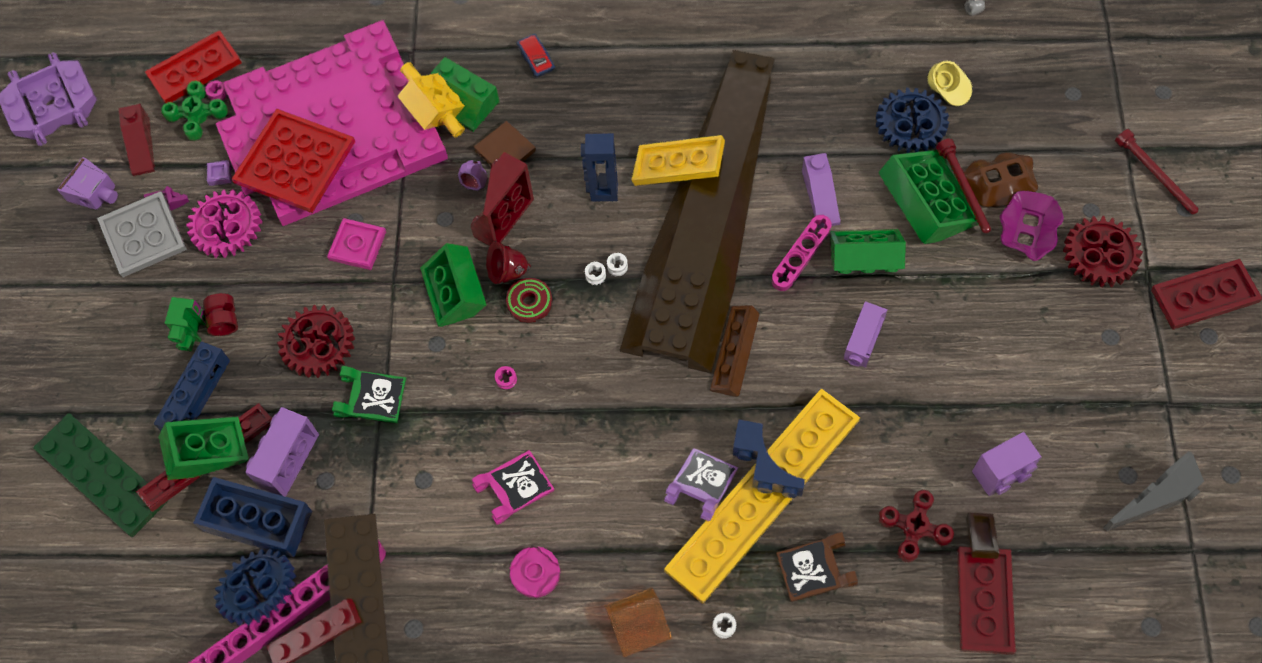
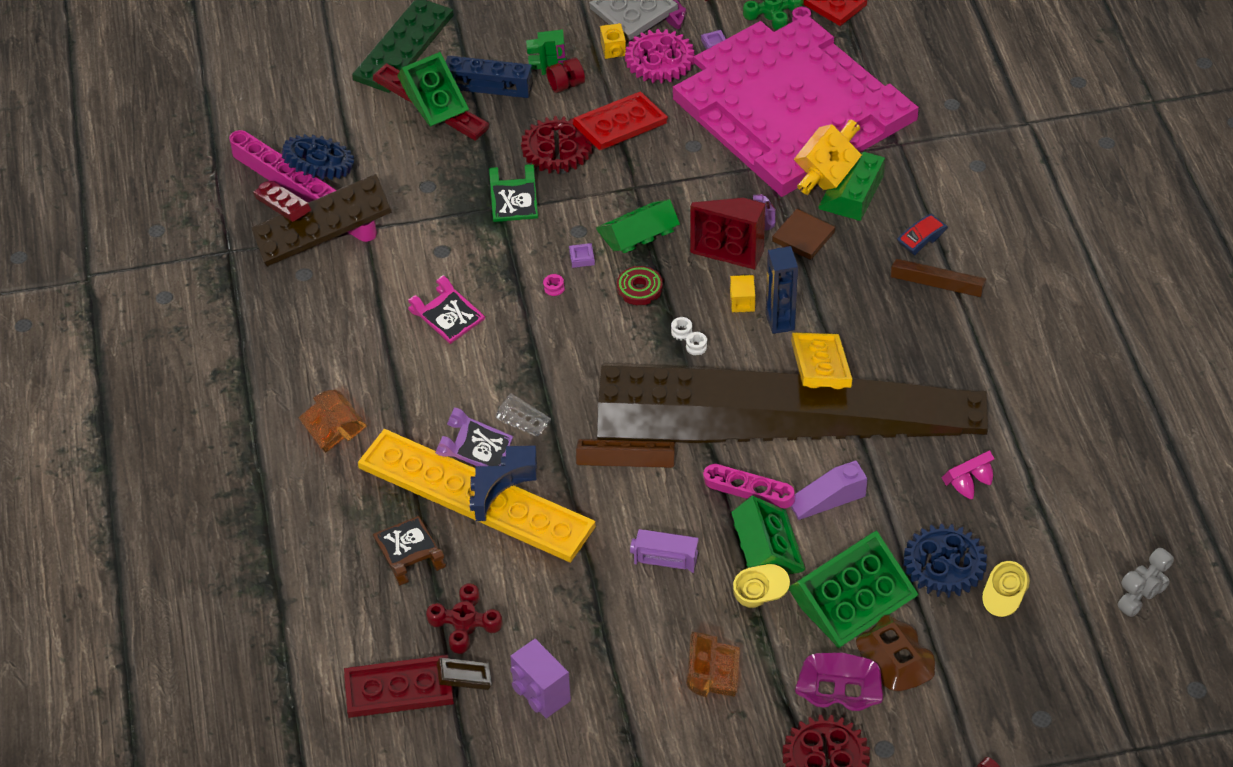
camera: 75 degrees right, 15 degrees down
(179, 256) = (613, 40): none -> yellow brick
(253, 516) = (379, 140): dark blue brick -> none
(282, 452) = (439, 143): medium lavender brick -> none
(294, 160) = (730, 77): red plate -> none
(308, 274) = (620, 120): none -> red plate
(356, 244) = (666, 151): dark pink tile -> none
(473, 345) = (581, 255): none -> medium lavender tile
(505, 263) = (669, 256): dark red piece -> none
(535, 572) = (368, 343): dark pink tile -> none
(569, 211) = (742, 293): none -> yellow brick
(589, 55) = (938, 277): none -> reddish brown slope
(663, 447) = (512, 418): none -> clear slope
(718, 619) = (337, 480): white bush -> none
(818, 83) = (961, 478): none -> dark pink tile
(922, 263) = (760, 585): none -> light yellow cap
(948, 150) = (915, 595): dark red piece -> none
(1002, 319) = (712, 666): none -> clear orange brick

